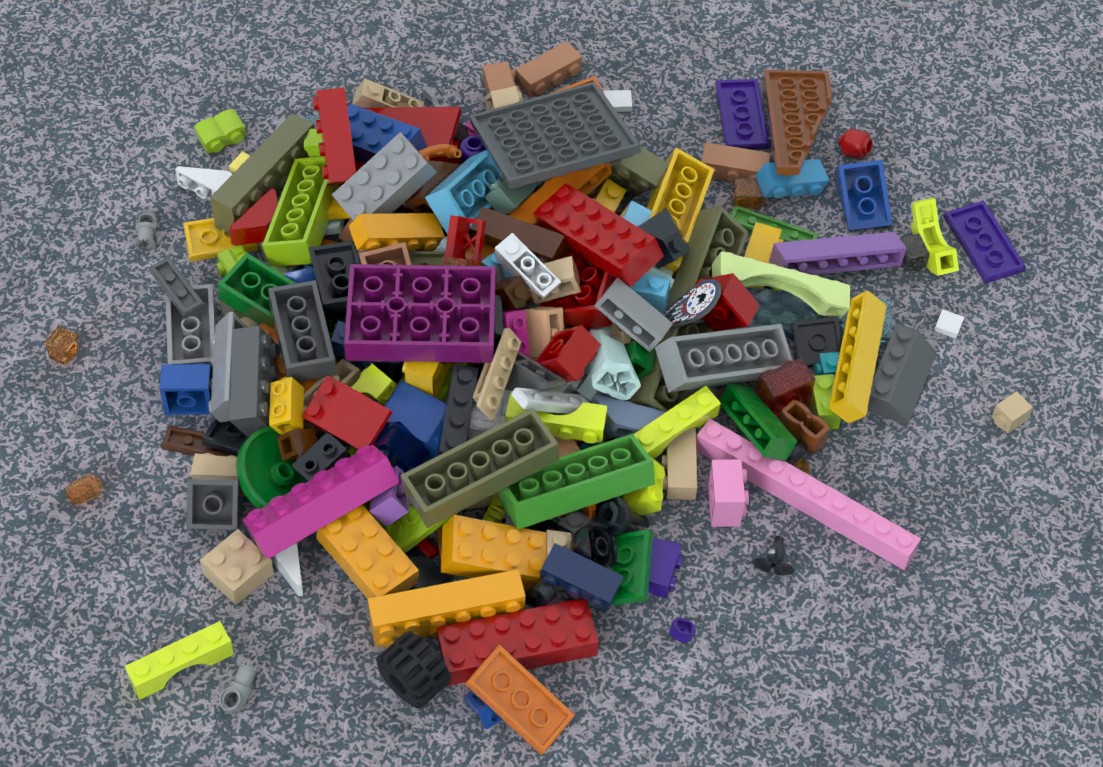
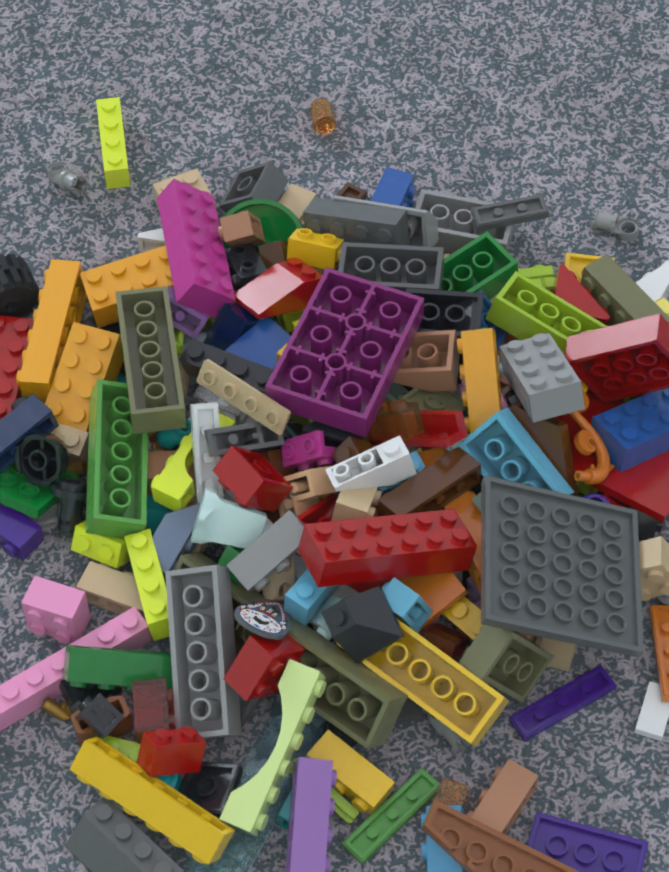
camera: 115 degrees right, 0 degrees up
(65, 349) = (488, 133): clear orange brick -> none
(286, 468) = (241, 229): none -> nougat brick
(811, 413) = (99, 714): none -> black bracket
(816, 353) = (171, 751): none -> red brick

